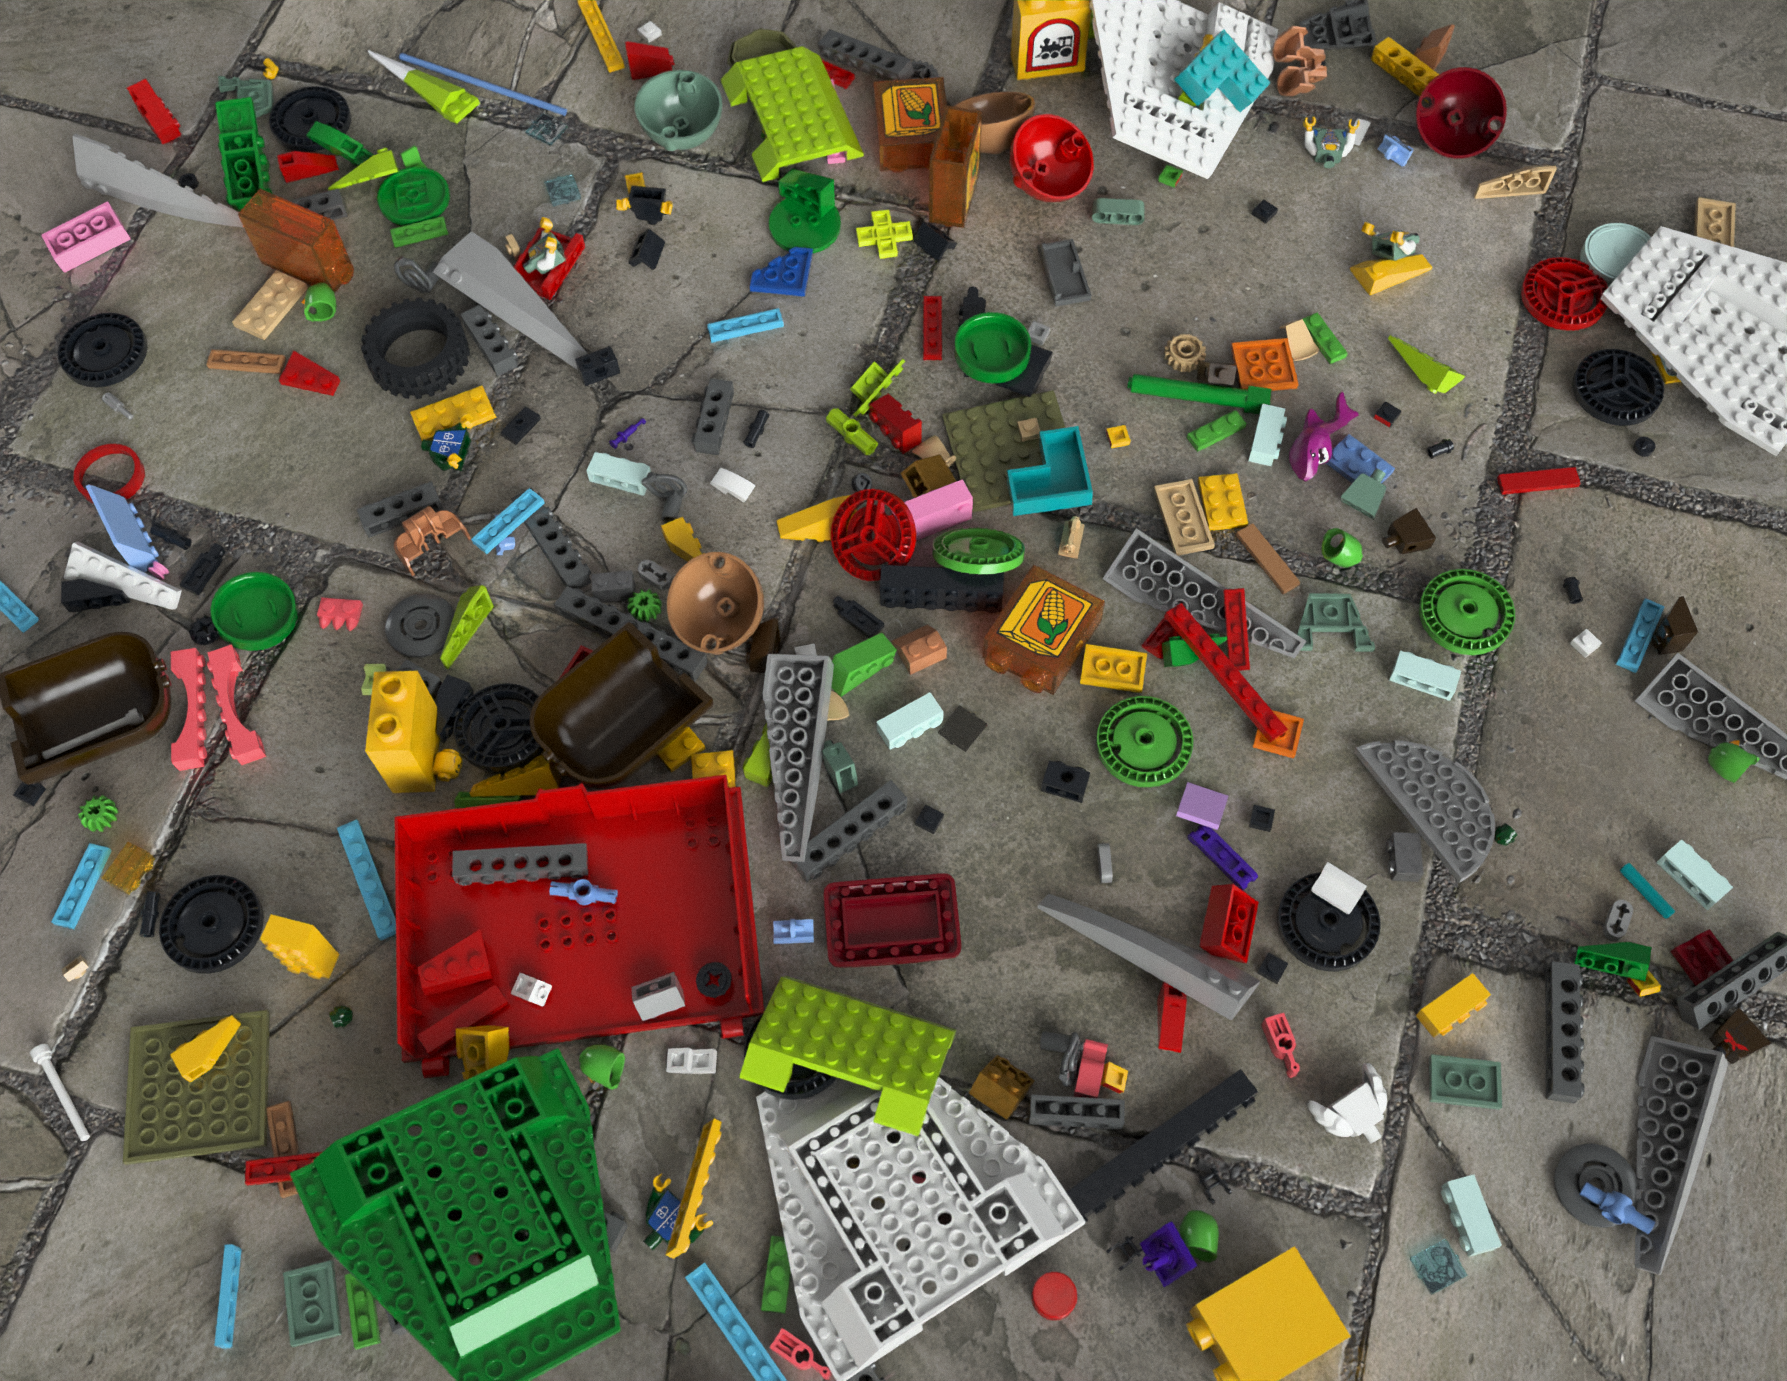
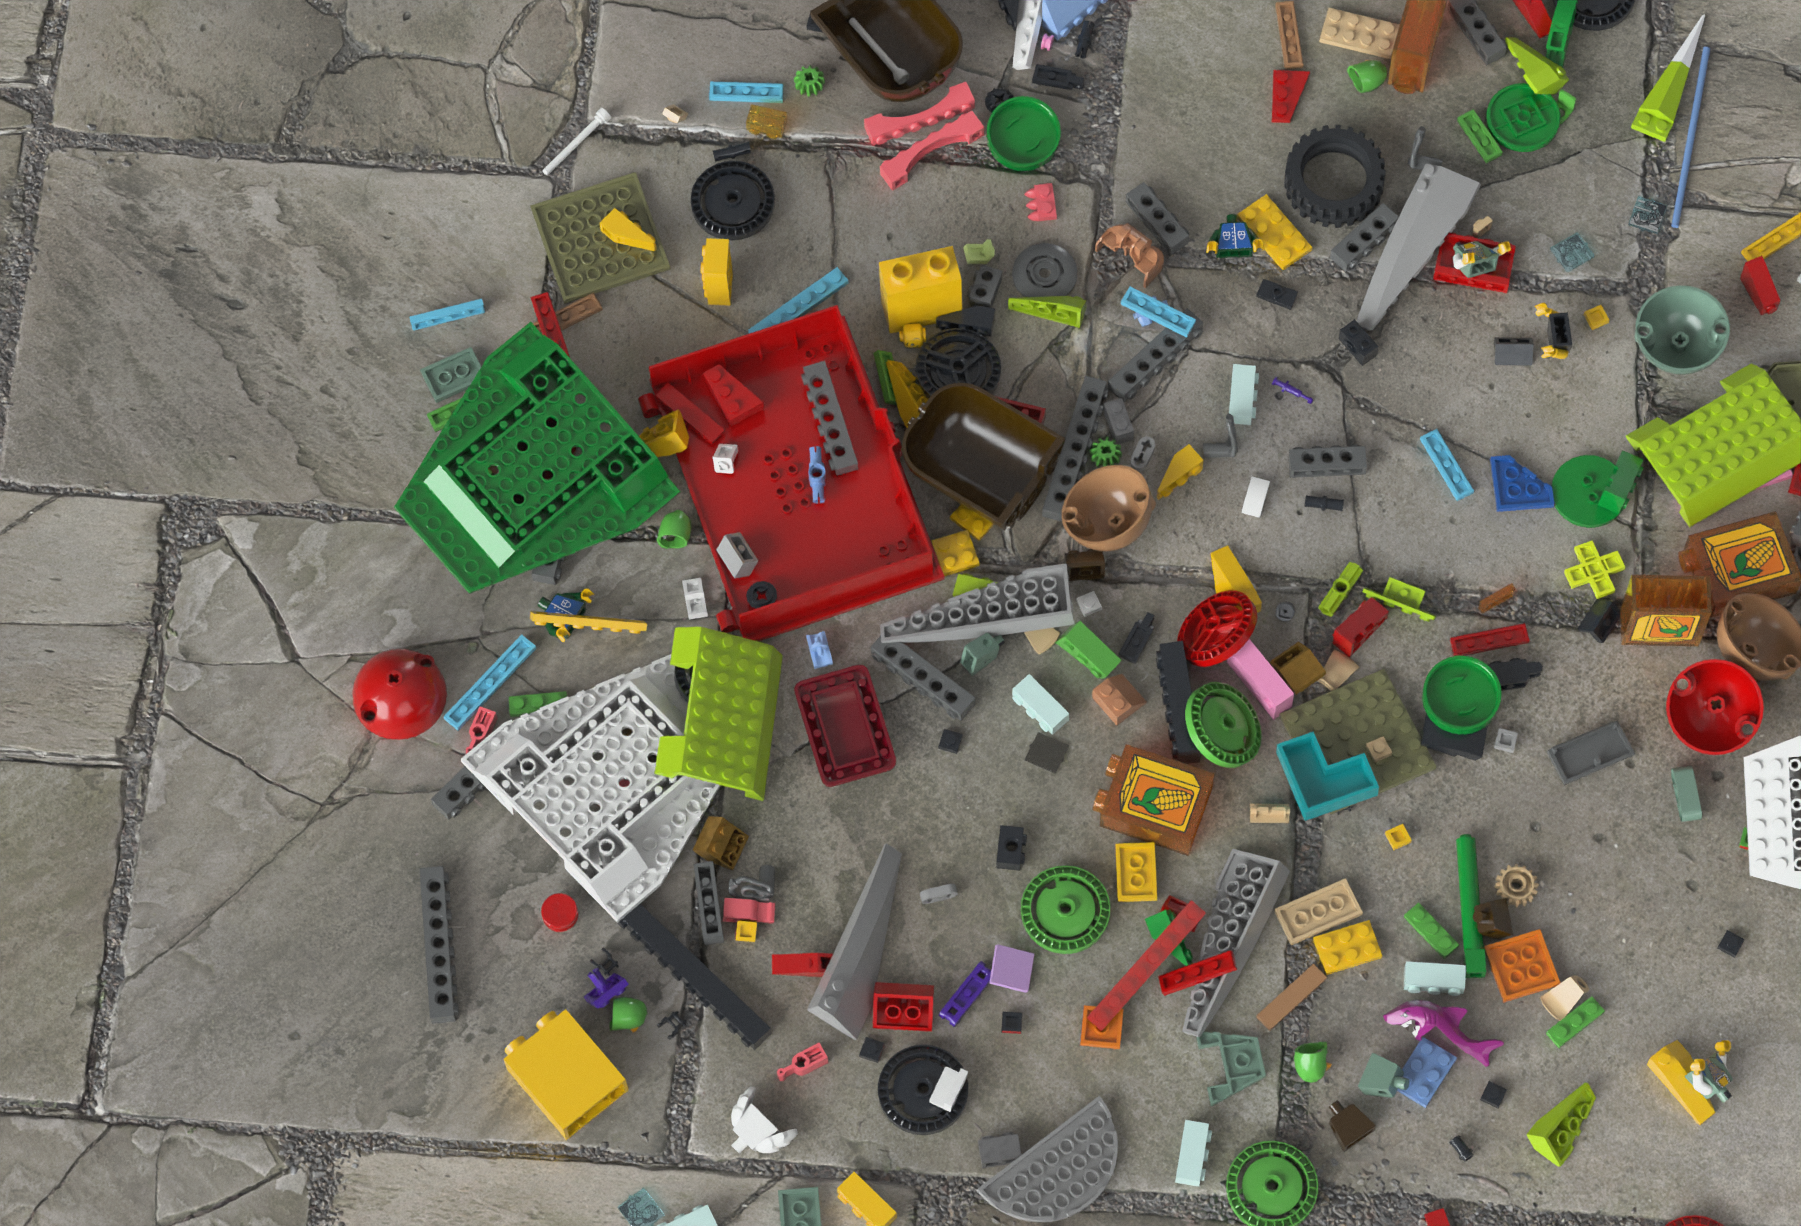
camera: 80 degrees right, 5 degrees up
(341, 1016) = (676, 322): dark green plate -> none
(894, 311) = (1496, 598): none -> clear orange tile

